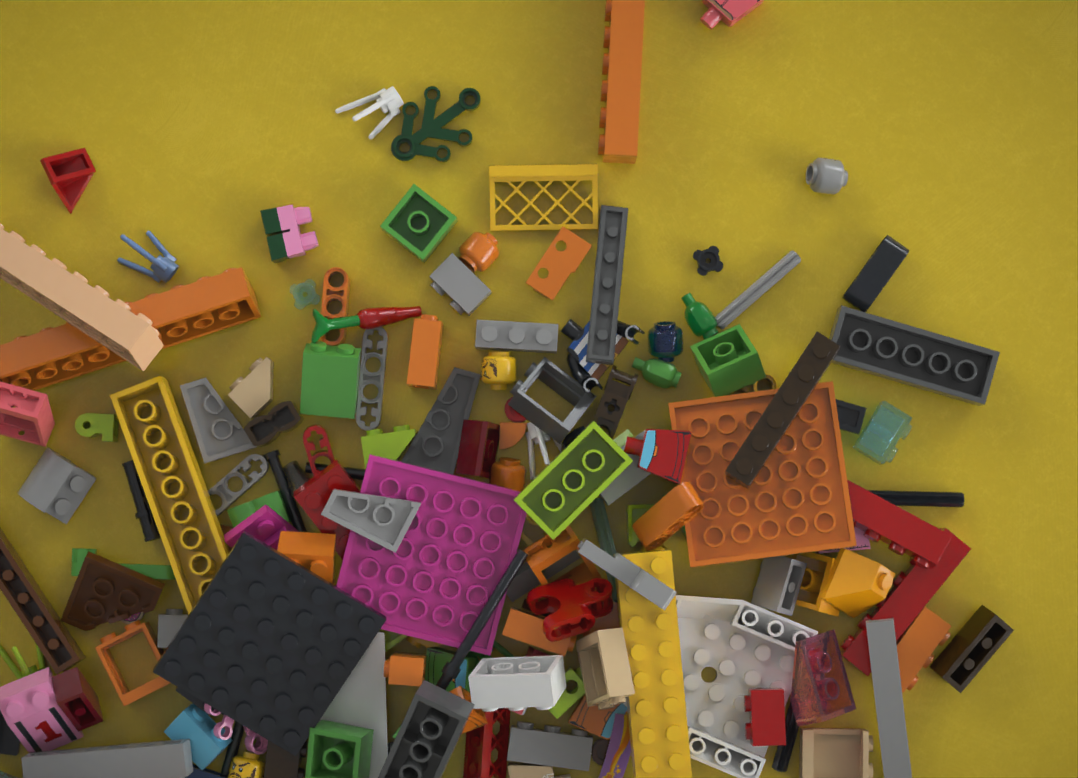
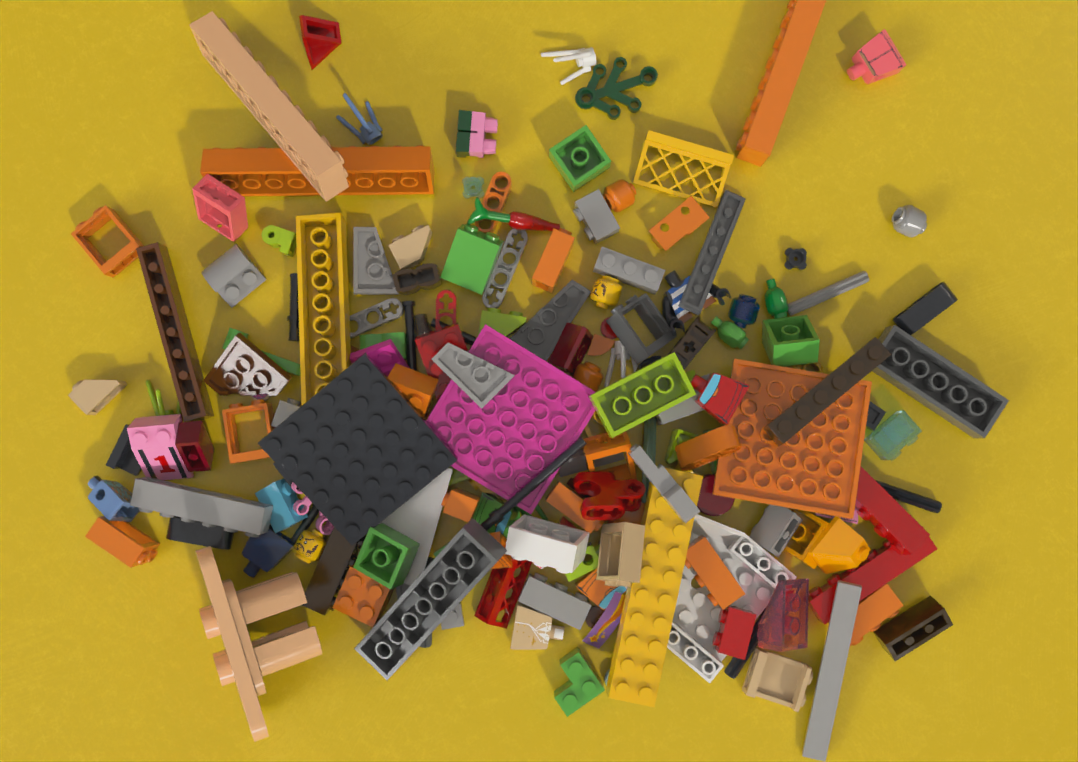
camera: 15 degrees right, 0 degrees up
(693, 579) = (712, 504): none -> dark red head
(719, 657) = (712, 573): none -> orange brick

